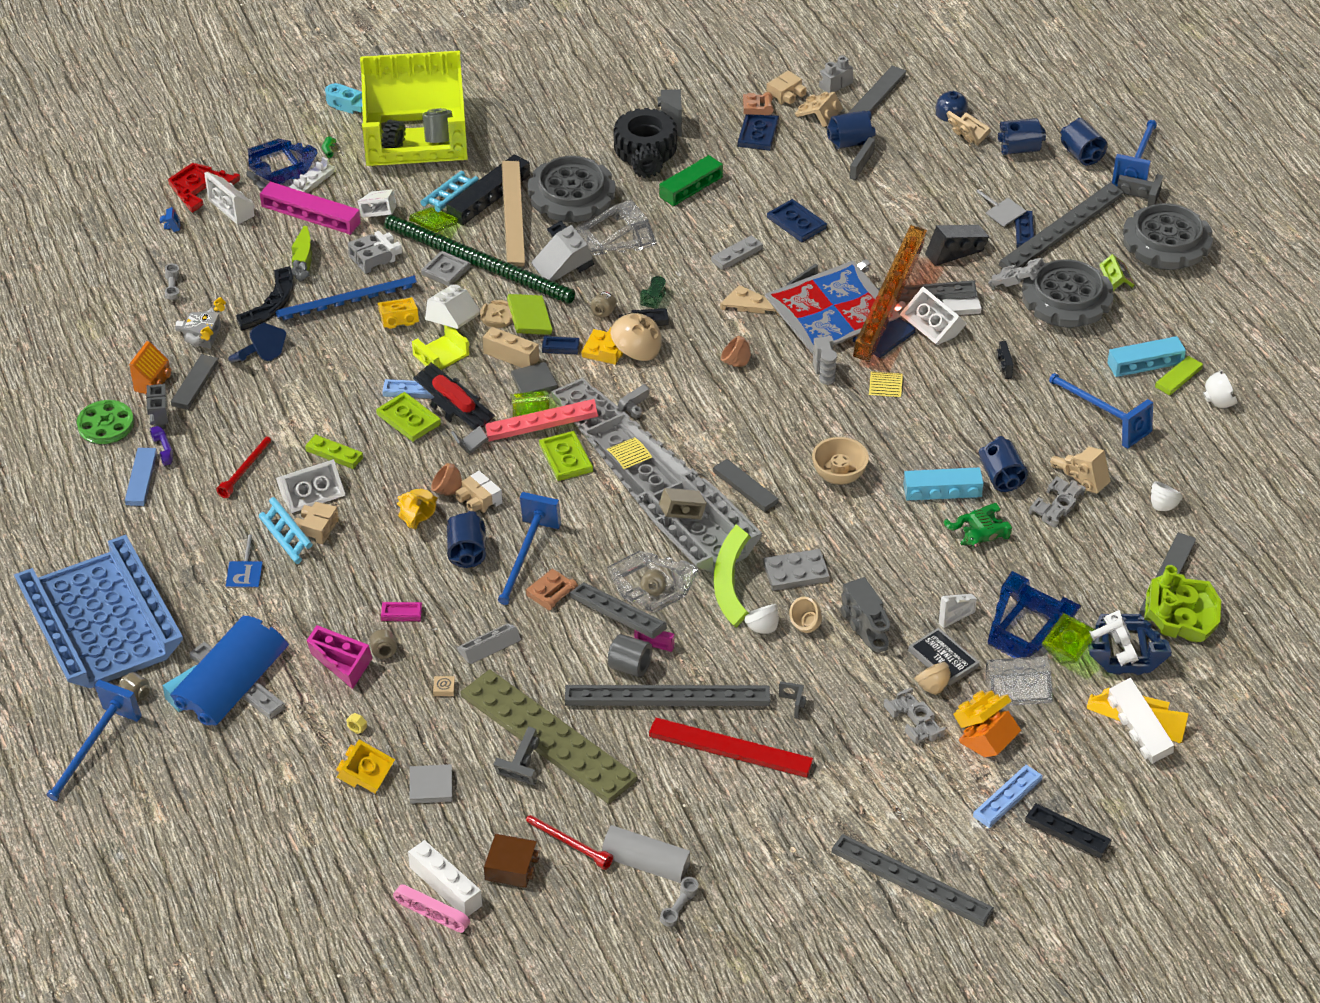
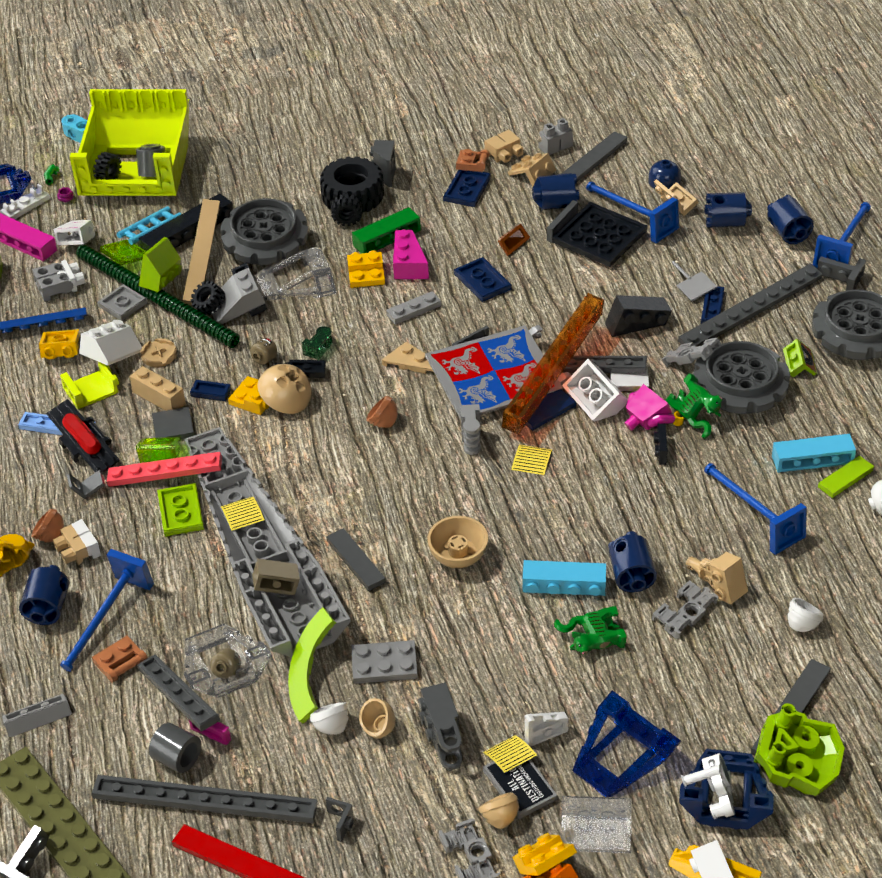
camera: 10 degrees right, 0 degrees up
(351, 166) = (65, 194): none -> magenta plate
(408, 416) = (34, 453): lime plate -> none
(479, 230) = (159, 266): none -> lime slope
(529, 314) = (187, 355): lime tile -> none
(530, 250) = (213, 302): none -> black tyre
(631, 400) = (262, 455): light grey piece -> none
(680, 219) = (365, 269): none -> yellow plate
(721, 204) = (408, 257): none -> dark pink wedge
(817, 179) = (513, 239): none -> dark orange slope
(901, 168) = (599, 234): none -> black plate
(930, 633) = (510, 753): none -> light yellow sticker
(962, 148) = (663, 219): none -> blue tile
(987, 330) = (649, 410): none -> torso
(1029, 319) = (692, 404): none -> green animal
(1068, 639) = (659, 779): clear neon green slope -> none

